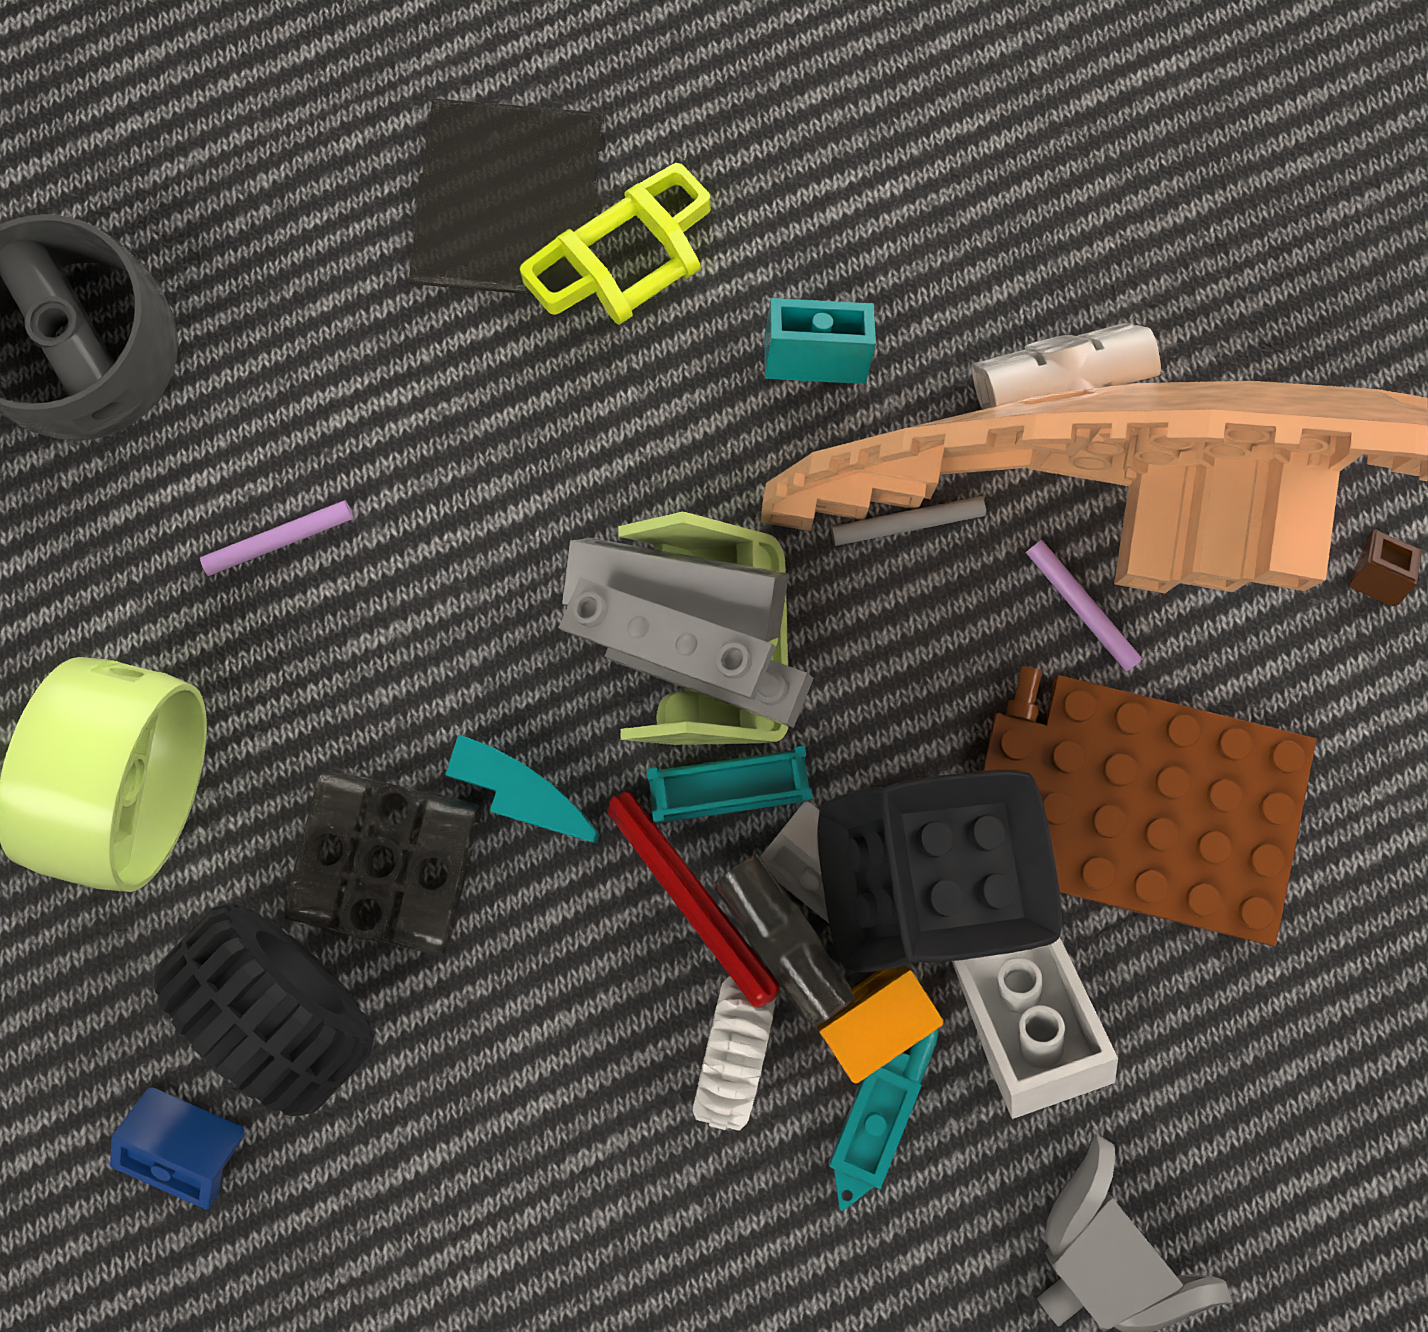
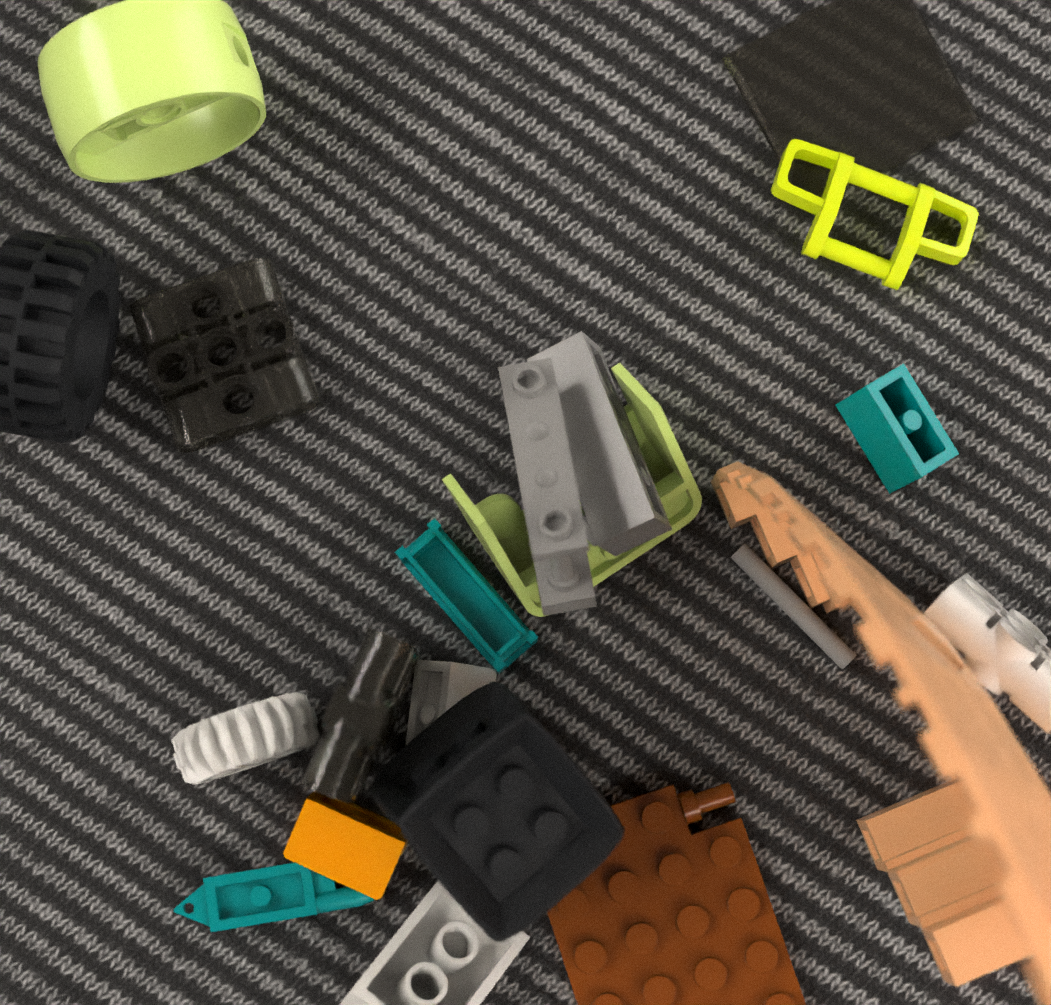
camera: 55 degrees right, 0 degrees up
(276, 538) = (435, 94): lavender bar -> none
(518, 790) = (351, 426): teal slope -> none
(694, 900) = (349, 622): red axle -> none
(1084, 605) = (818, 804): lavender bar -> none

